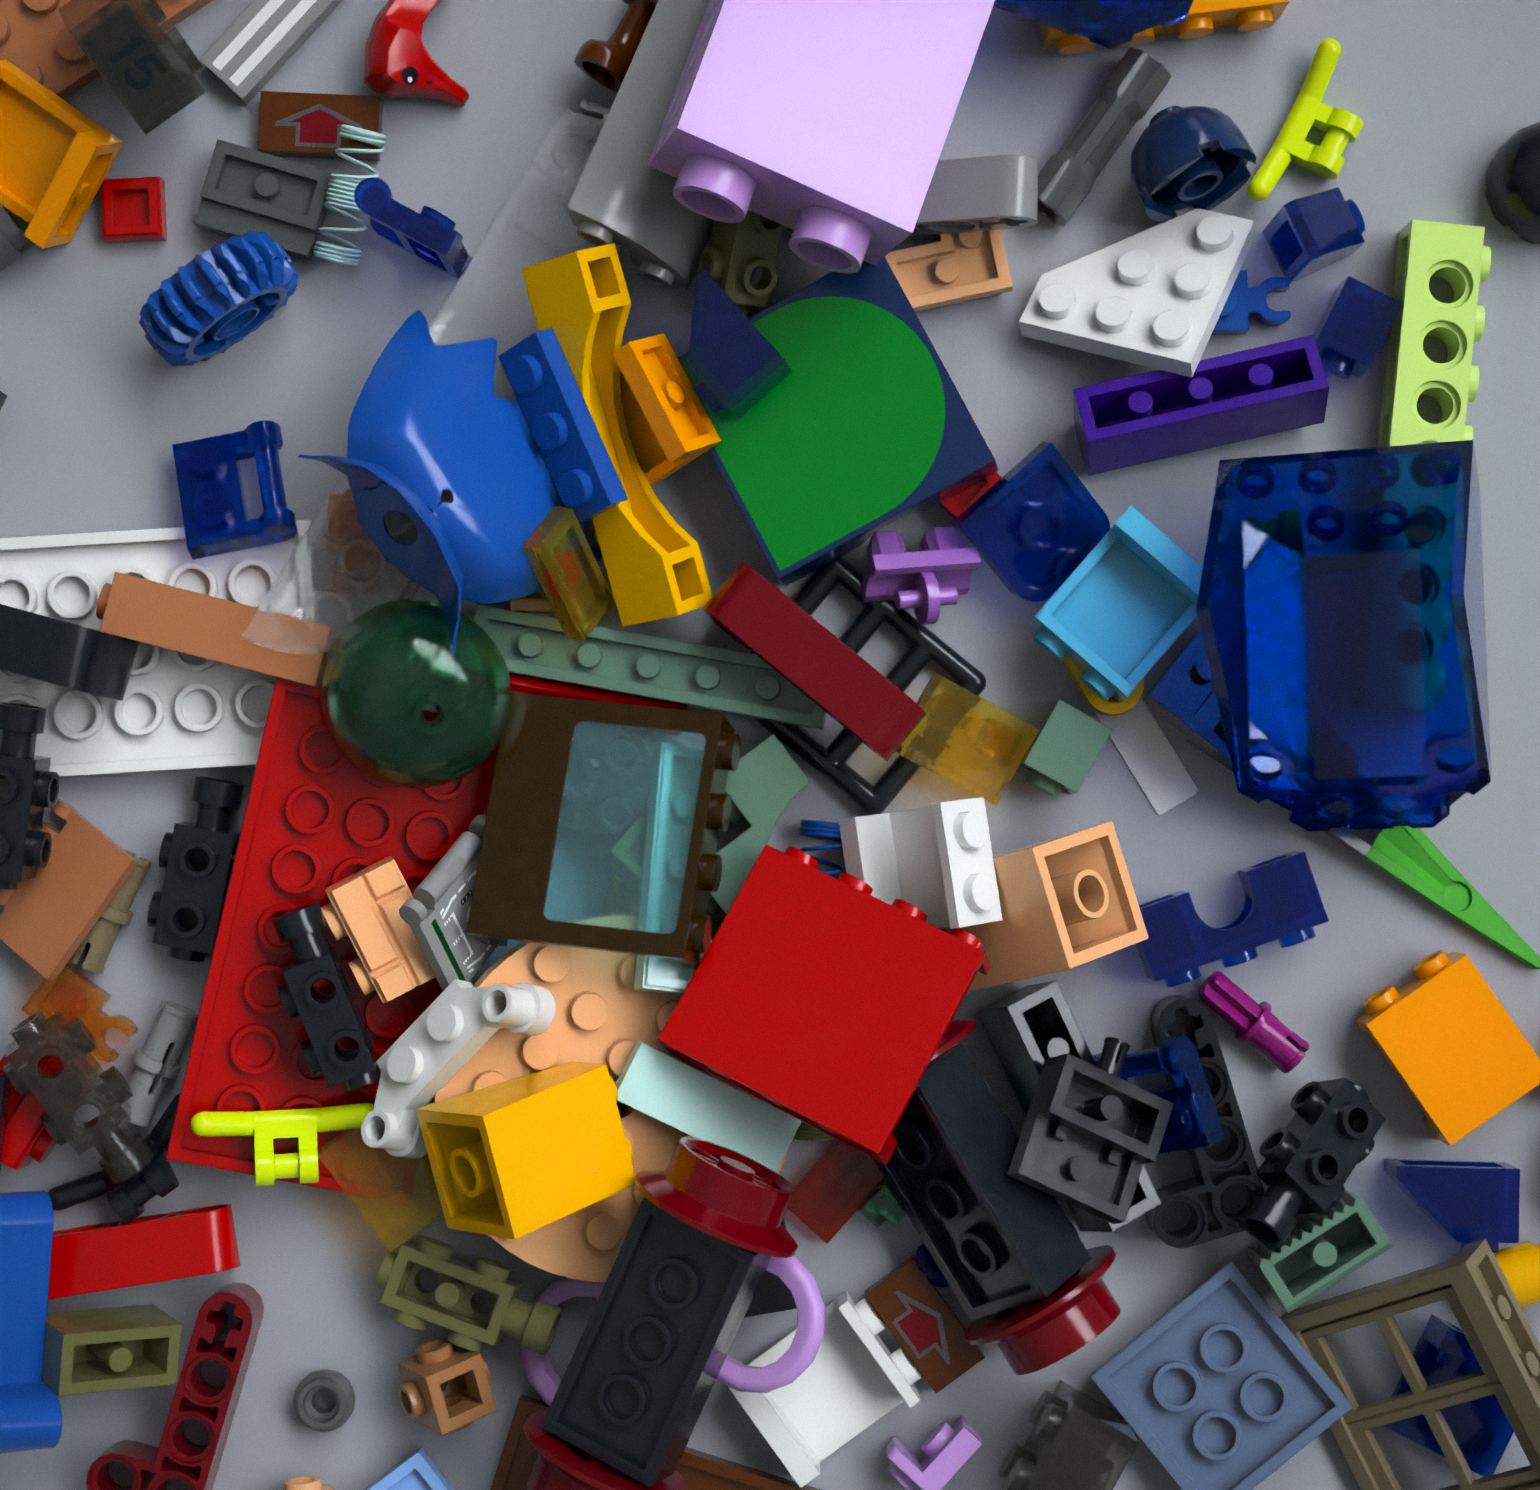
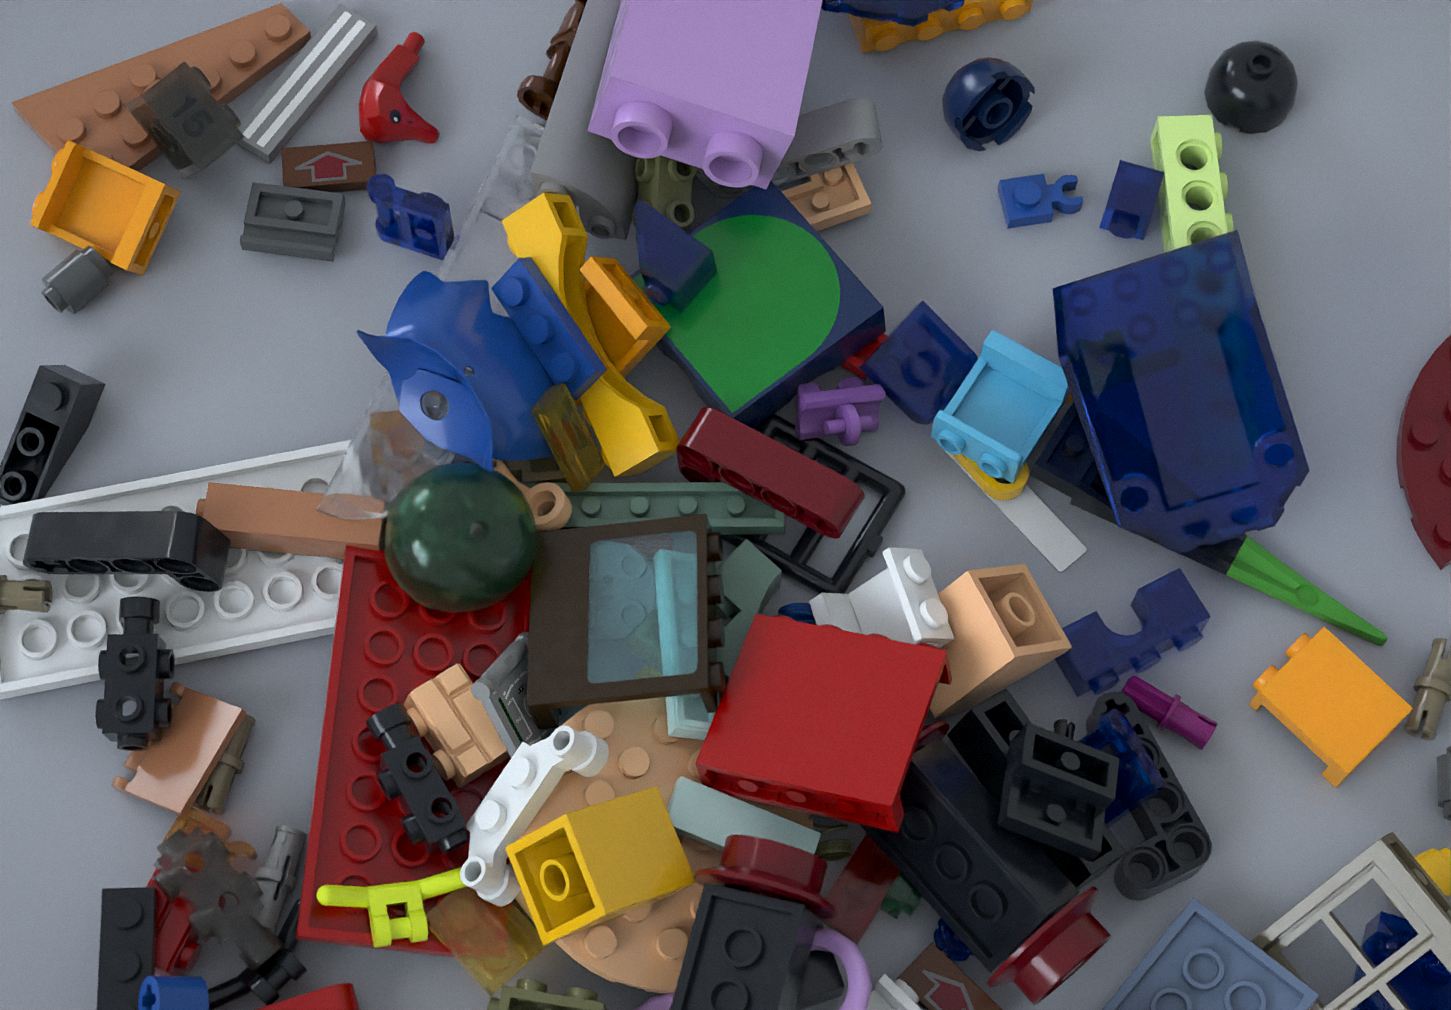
camera: 20 degrees left, 20 degrees down
(133, 210) = (191, 244): red tile -> none
(190, 887) = (292, 725): black brick -> none
(214, 491) = (279, 432): clear blue plate -> none
(218, 298) = (267, 285): blue gear -> none
(341, 195) = (357, 206): light aqua piece -> none
(519, 647) = (542, 499): none -> light nougat plate
(967, 739) = (896, 520): clear yellow plate -> none
(1064, 749) = (976, 525): sand green brick -> none
(1119, 106) = (926, 77): dark grey axle -> none
(1146, 295) = (972, 197): white plate -> none
(1222, 404) = (1027, 263): dark purple brick -> none
(1306, 112) = (1089, 71): neon yellow piece -> none
(1311, 1157) = (1238, 802): black brick -> none
(1314, 233) = (1086, 138): clear blue slope -> none
(1320, 1251) = (1261, 875): sand green brick -> none
(1463, 1197) = (1362, 817): clear blue slope -> none

